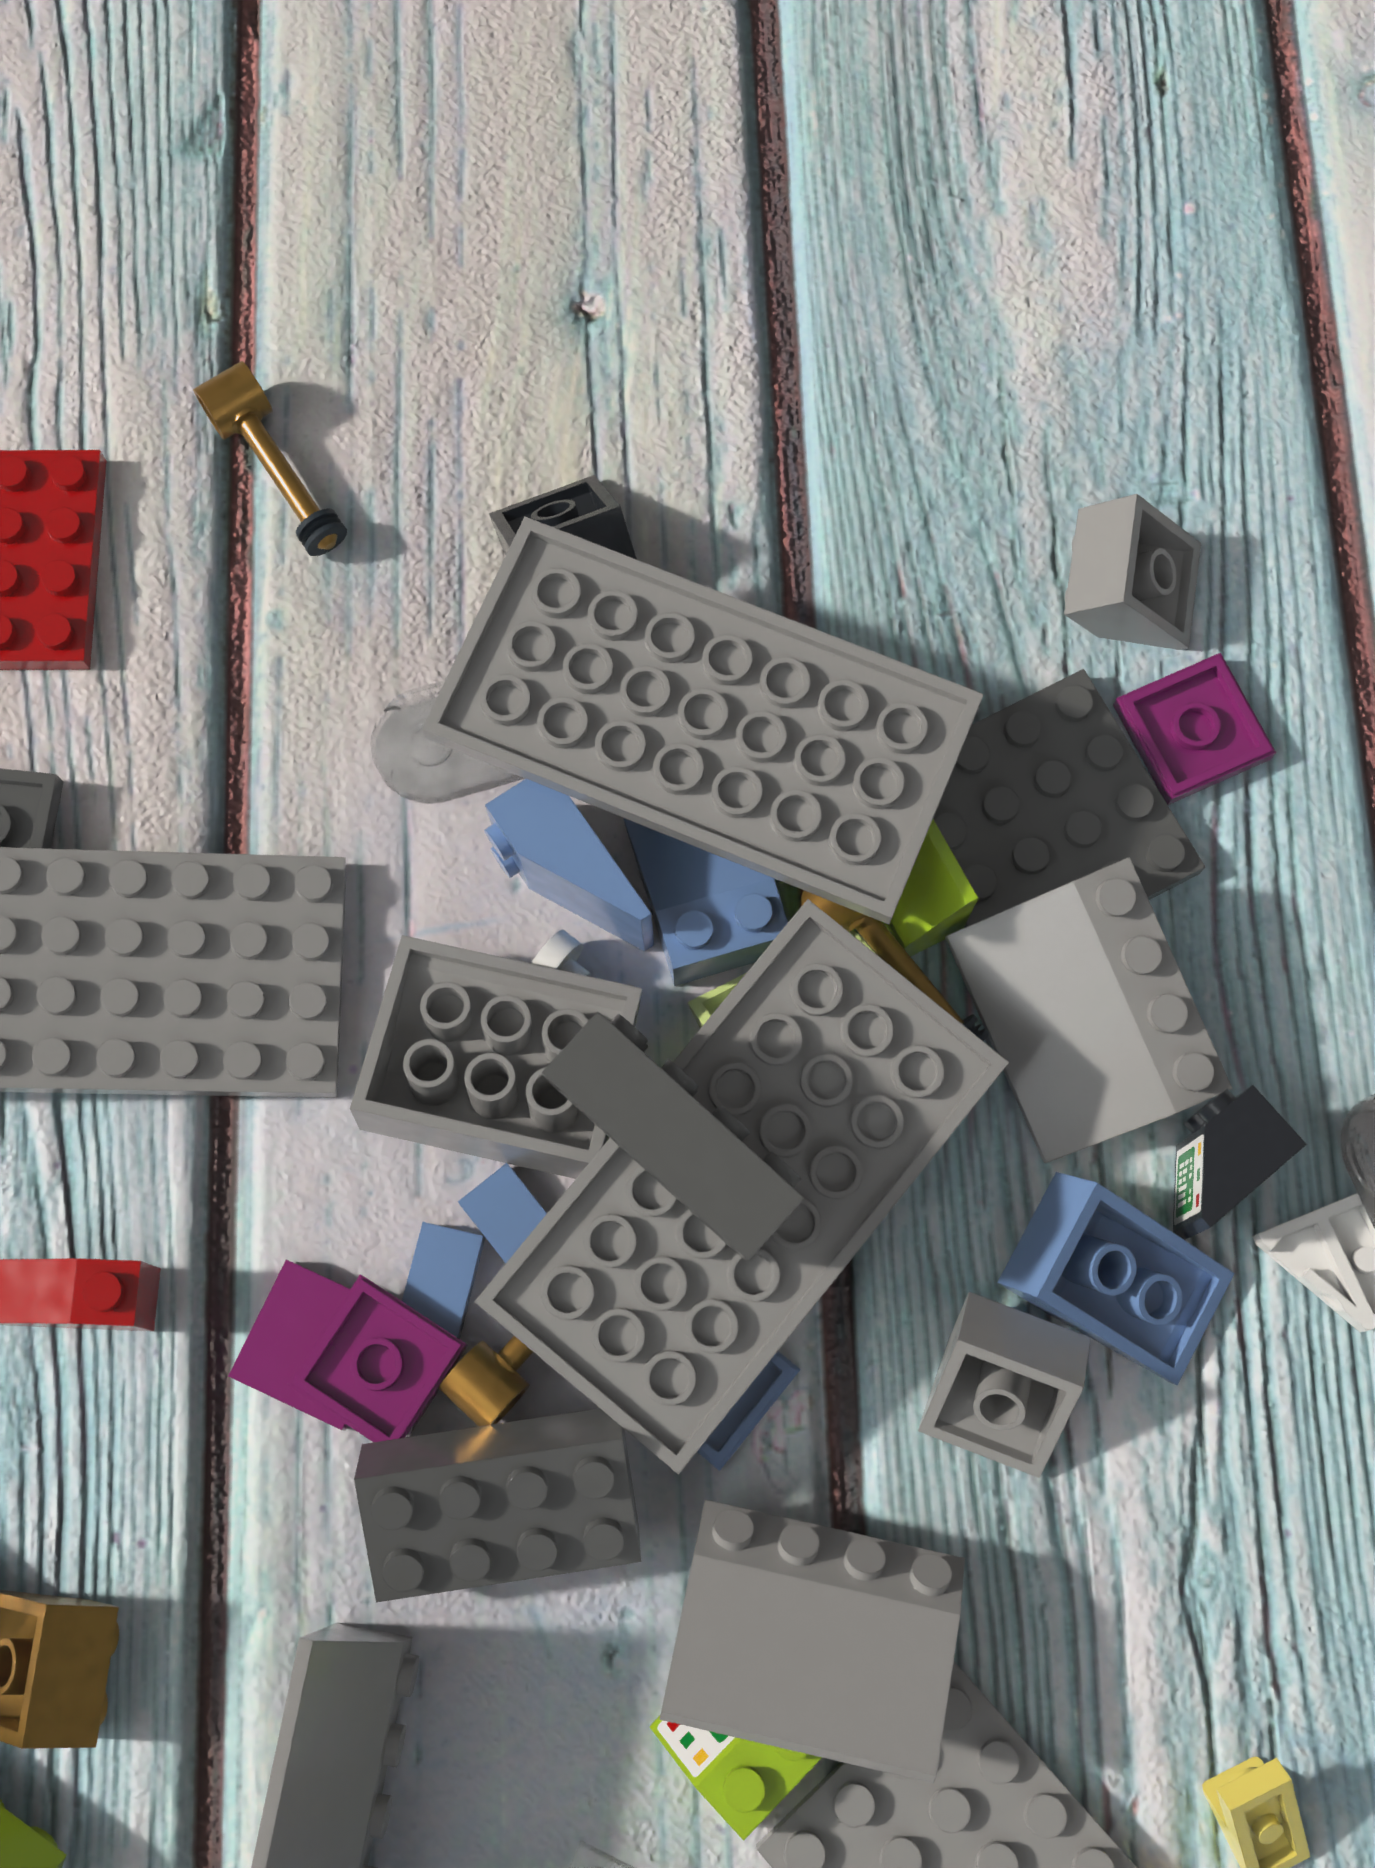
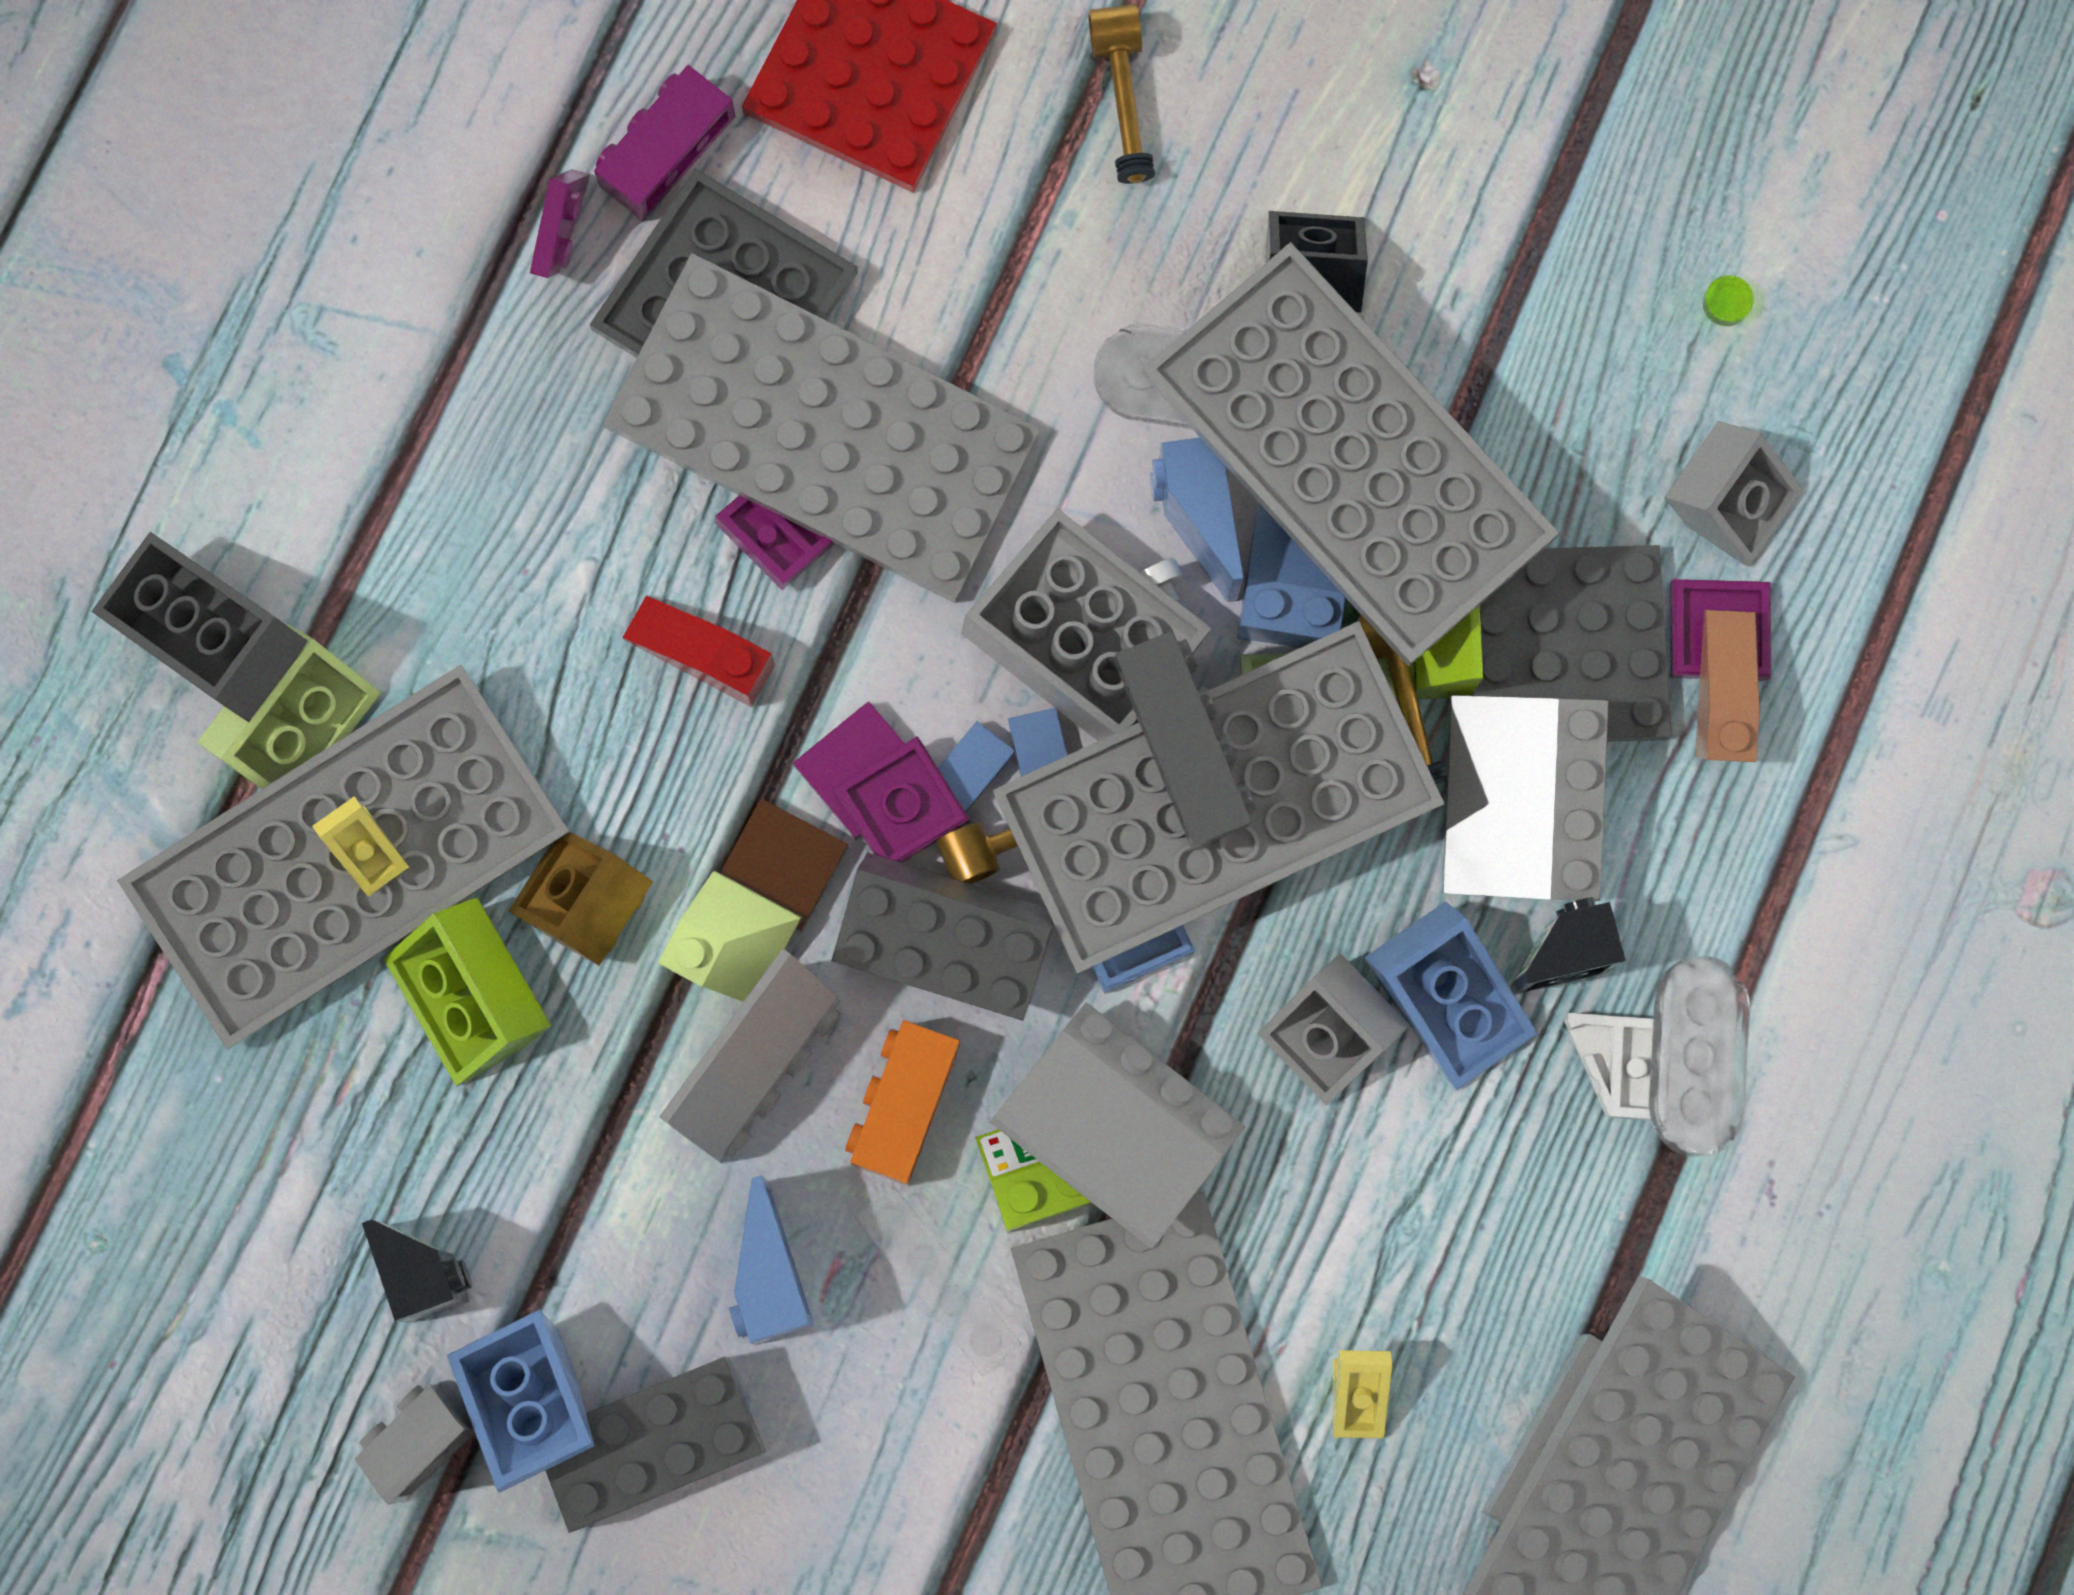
camera: 20 degrees right, 5 degrees up
(91, 1127) = (771, 541): none -> magenta wing
(238, 1632) = (728, 937): none -> yellowish green slope
(268, 1506) = (785, 859): none -> reddish brown tile
(542, 1734) = (902, 1102): none -> orange brick
(1019, 387) = (1728, 300): none -> clear neon green tile
(1243, 787) = (1728, 688): none -> nougat slope

